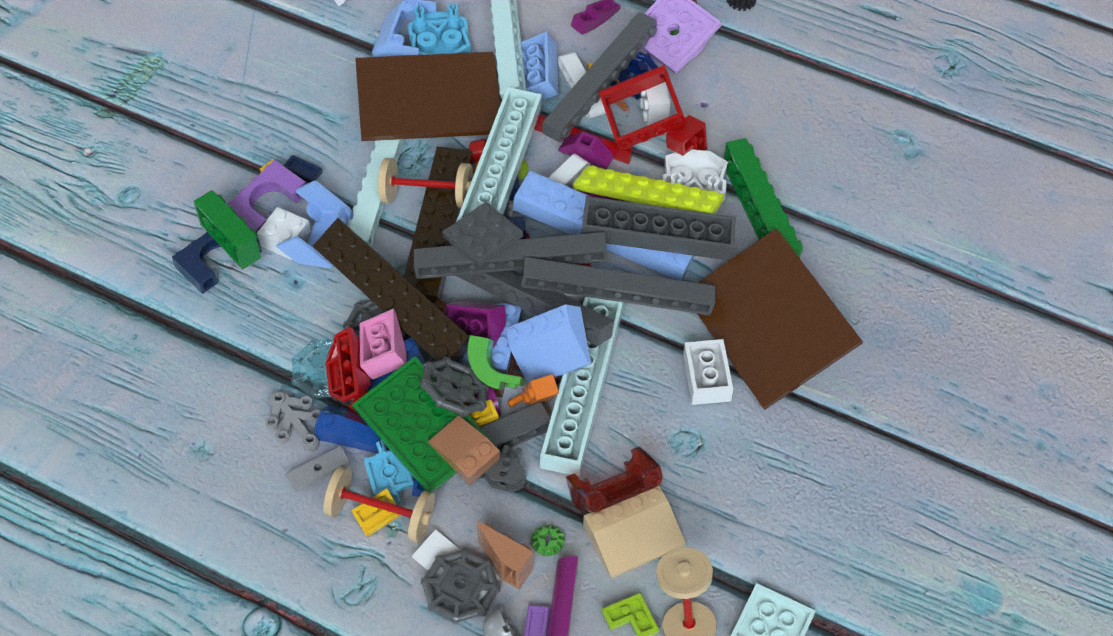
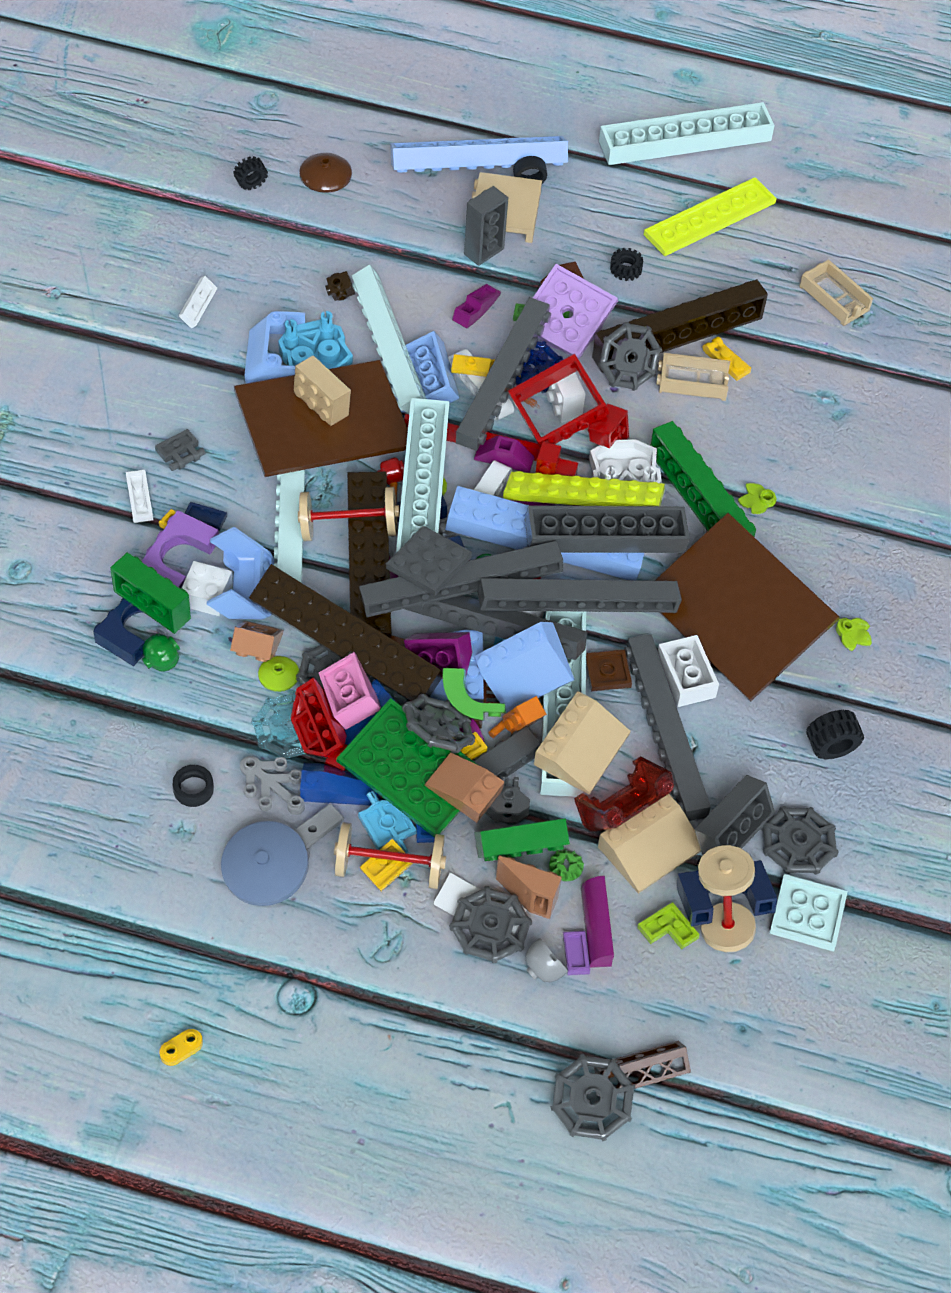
camera: 15 degrees left, 0 degrees up
(225, 422) = (198, 799): none -> black tyre
(227, 285) = (160, 652): none -> green plant
(249, 144) = (139, 496): none -> white plate
(265, 493) = (264, 863): none -> sand blue dish
(297, 104) = (178, 445): none -> dark grey plate
(315, 286) = (256, 640): none -> nougat slope
(329, 325) = (278, 680): none -> lime dish
(429, 70) = (322, 390): none -> tan brick
(507, 507) = (521, 838): none -> green brick
(572, 65) = (470, 365): none -> yellow plate
(585, 425) = (581, 743): none -> tan slope
(624, 161) = (551, 463): none -> red brick
(633, 360) = (608, 670): none -> reddish brown plate
(676, 425) = (667, 726): none -> dark grey brick
(716, 67) = (621, 352): none -> dark grey plate
(720, 520) = (737, 816): none -> dark grey brick
(723, 589) = (699, 906): none -> dark blue arch
(776, 54) = (695, 319): none -> dark brown brick
(777, 562) = (796, 850): none -> dark grey plate
(780, 101) = (693, 376): none -> tan door
(814, 220) = (757, 498): none -> lime plate
(815, 90) = (737, 367): none -> yellow plate
(836, 454) = (835, 734): none -> black tyre
(881, 360) = (854, 633): none -> lime plate
(933, 42) = (836, 292): none -> tan door

